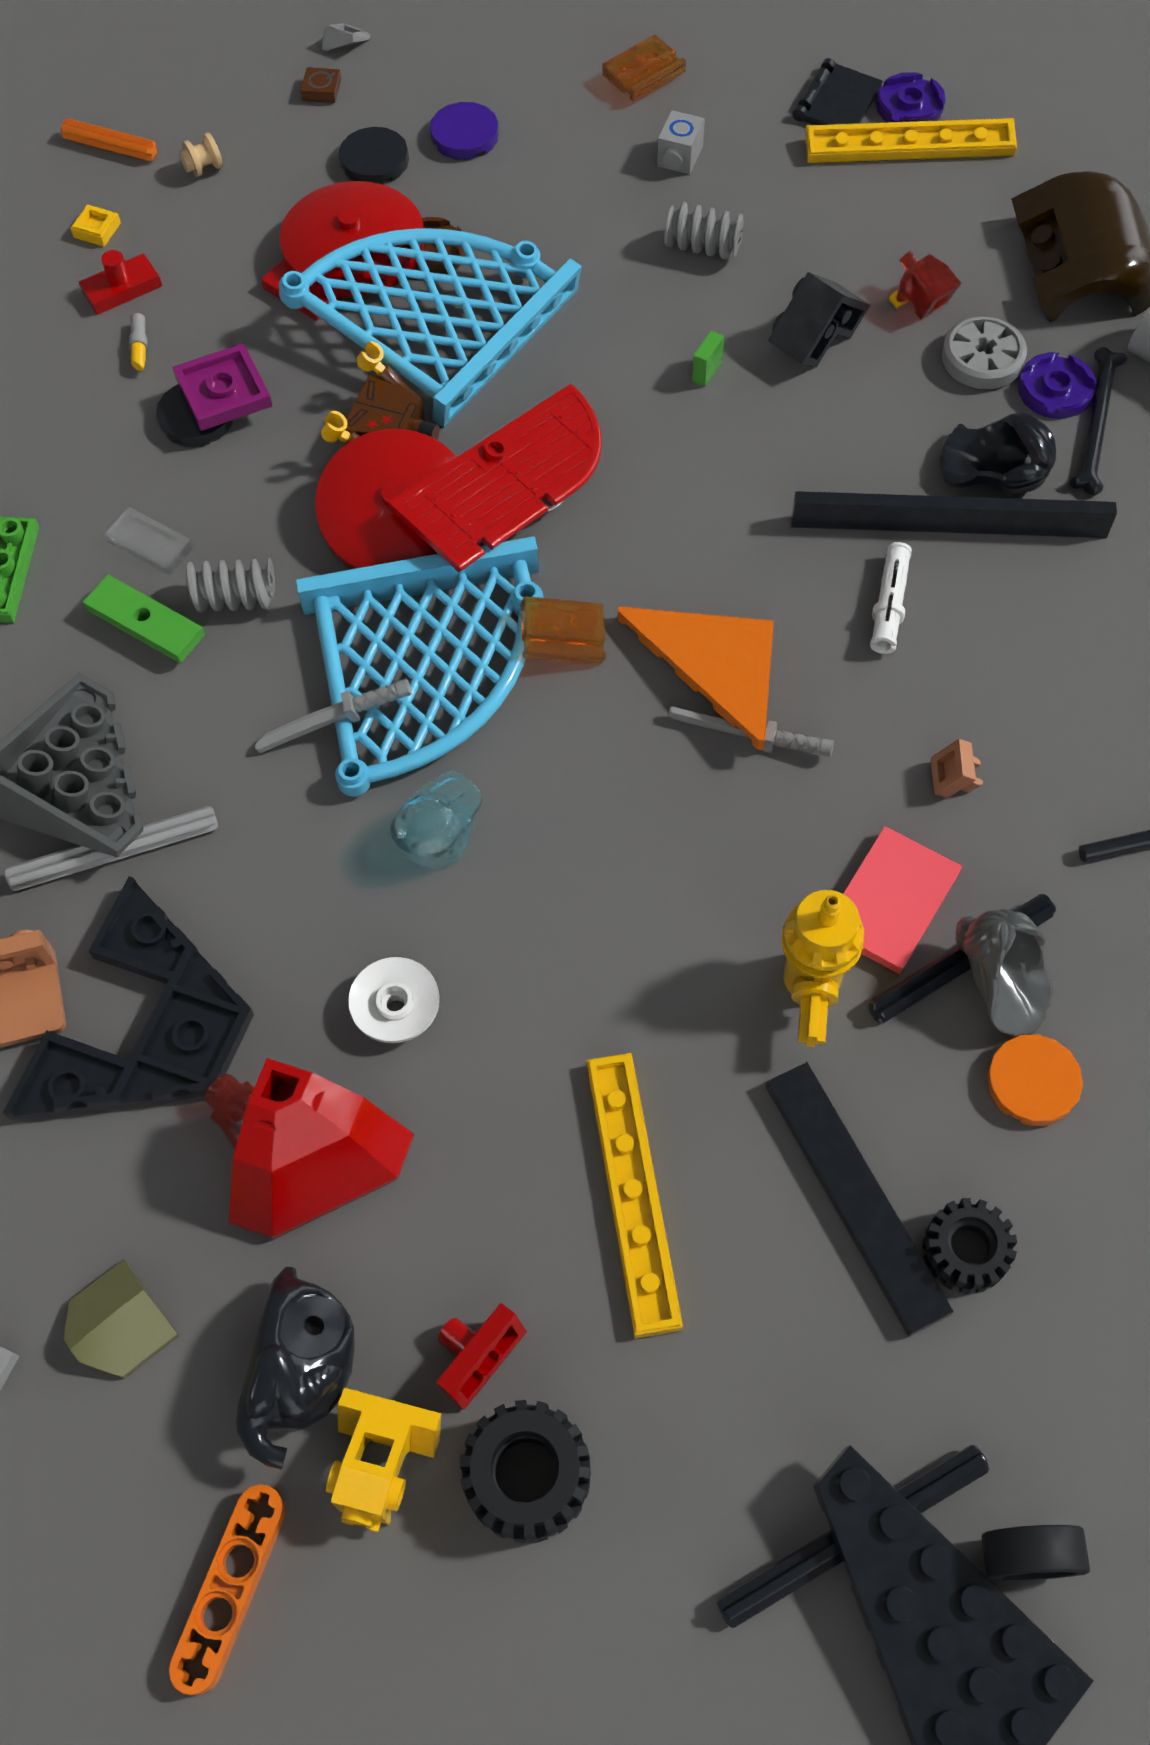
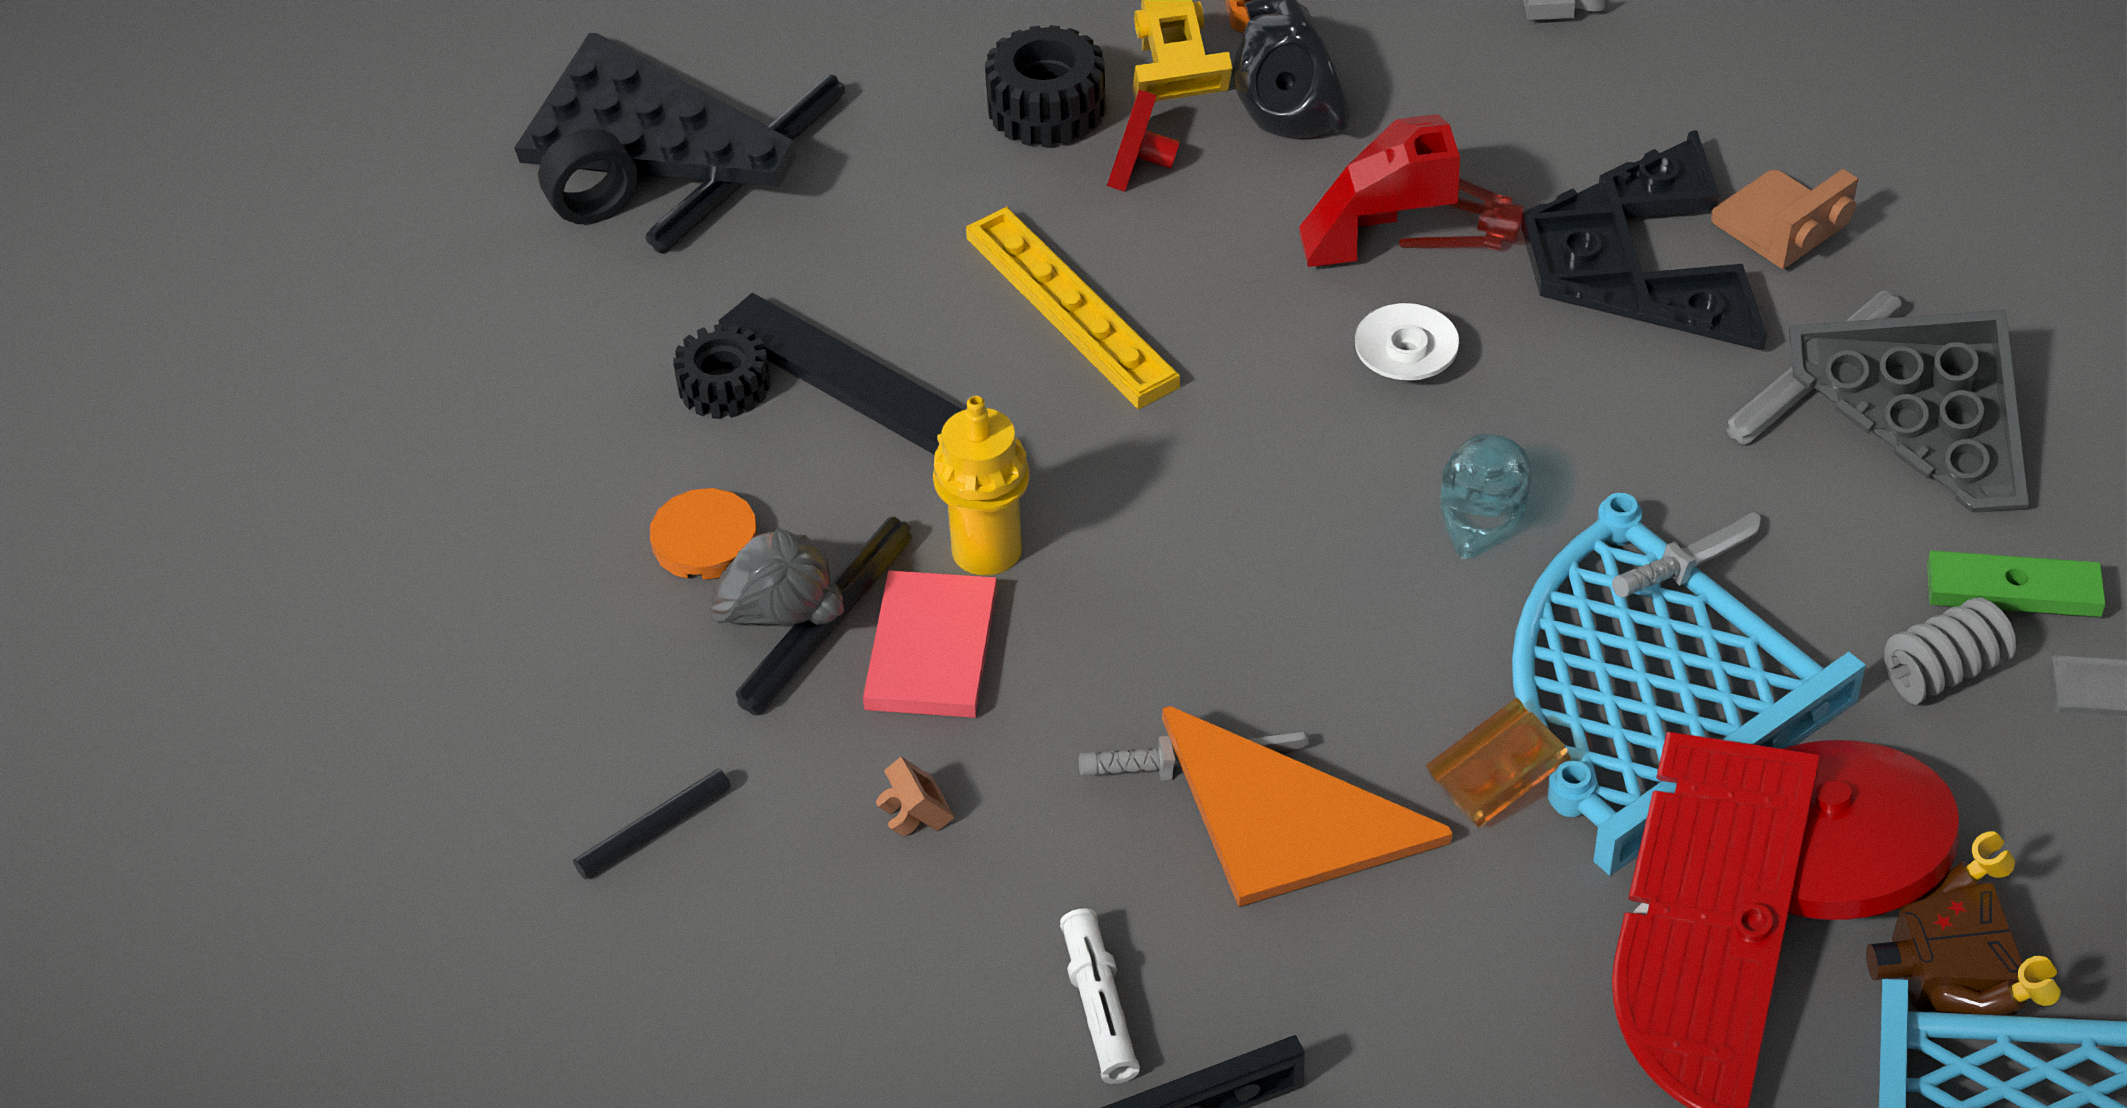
camera: 155 degrees right, 15 degrees down
(116, 1323) = (1467, 64): olive slope -> none

